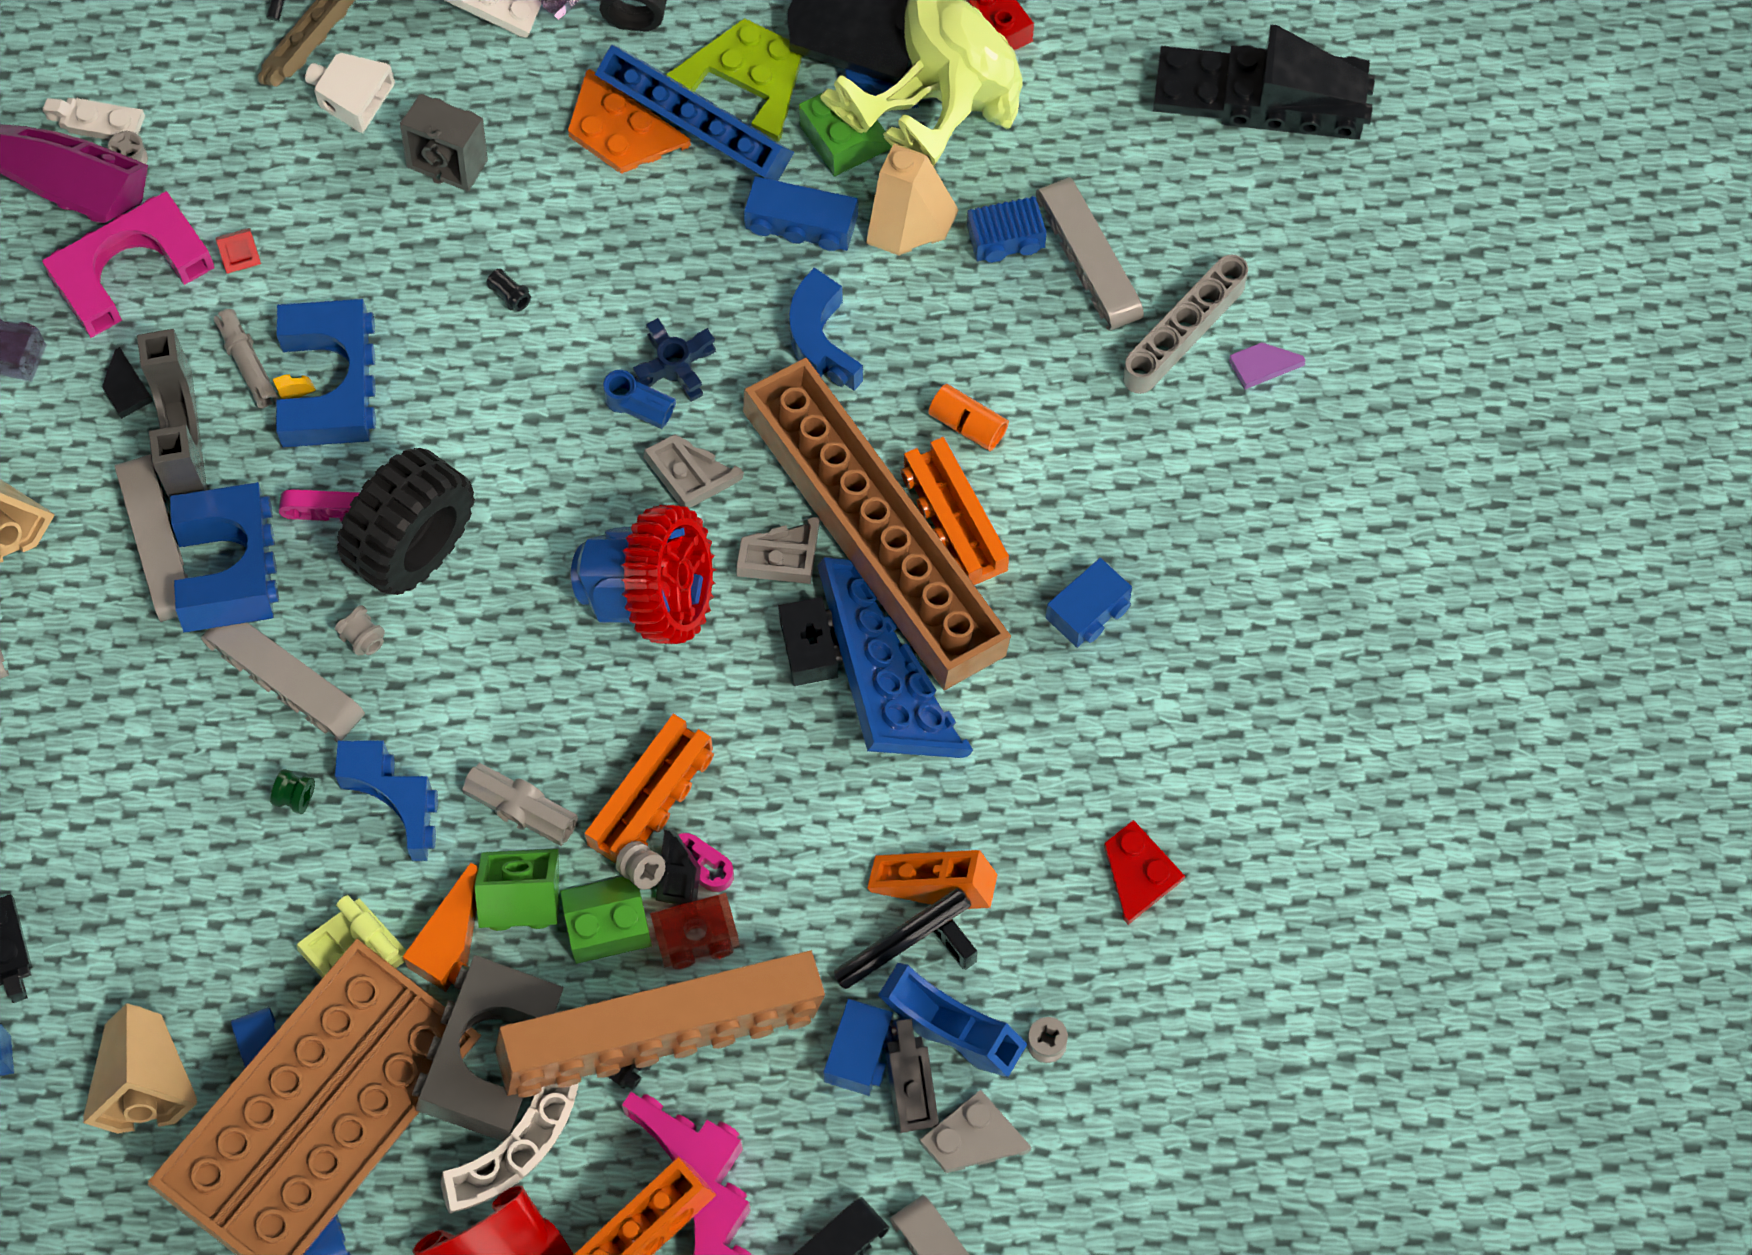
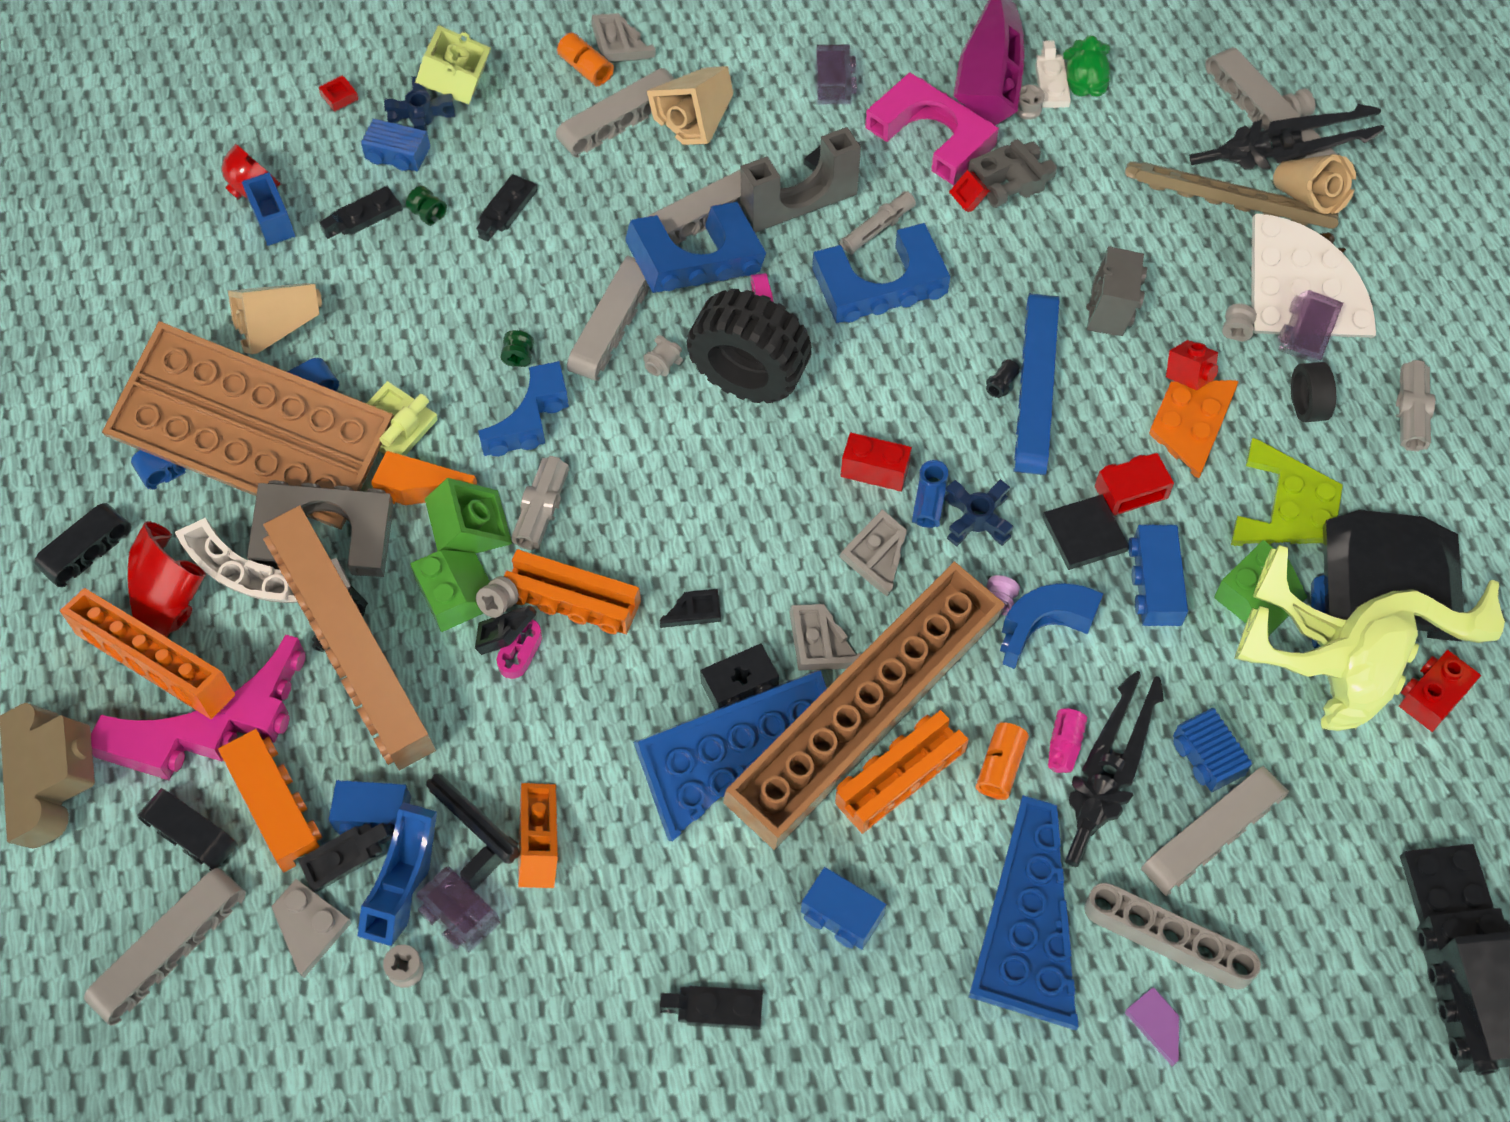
camera: 75 degrees right, 5 degrees down
(21, 868) = (425, 204): none -> dark green wheel
(59, 769) = (505, 206): none -> black hinge
(100, 76) = (1088, 67): none -> green hair
(226, 189) = (1018, 165): none -> dark grey hips
(293, 387) = (860, 258): yellow tile -> none
(351, 88) = (1145, 224): white torso -> none
(516, 42) = (1239, 322): none -> light grey wheel
(528, 256) = (1037, 384): none -> blue beam
(561, 101) = (1192, 364): none -> red brick
(580, 441) = (875, 461): none -> red brick
(649, 574) = (755, 538): red piece -> none
(686, 204) = (1134, 483): none -> red brick
(694, 113) = (1221, 466): blue brick -> none
(703, 672) = (693, 609): none -> black tile
(709, 914) = (450, 639): clear red brick -> none
(724, 268) = (1085, 532): none -> black tile
(776, 360) = (1004, 589): none -> lavender wheel
(820, 1153) = (269, 798): none -> orange brick
(909, 204) = (1199, 656): tan slope -> none
(960, 354) = (1066, 740): none -> dark pink hinge
(999, 974) = (457, 909): none -> clear purple brick
(1027, 345) = (1100, 796): none -> black sword
(1139, 870) = (586, 1015): red wing -> none
(1147, 444) = (1027, 937): none -> blue wing
(1158, 746) = (715, 1007): none -> black hinge

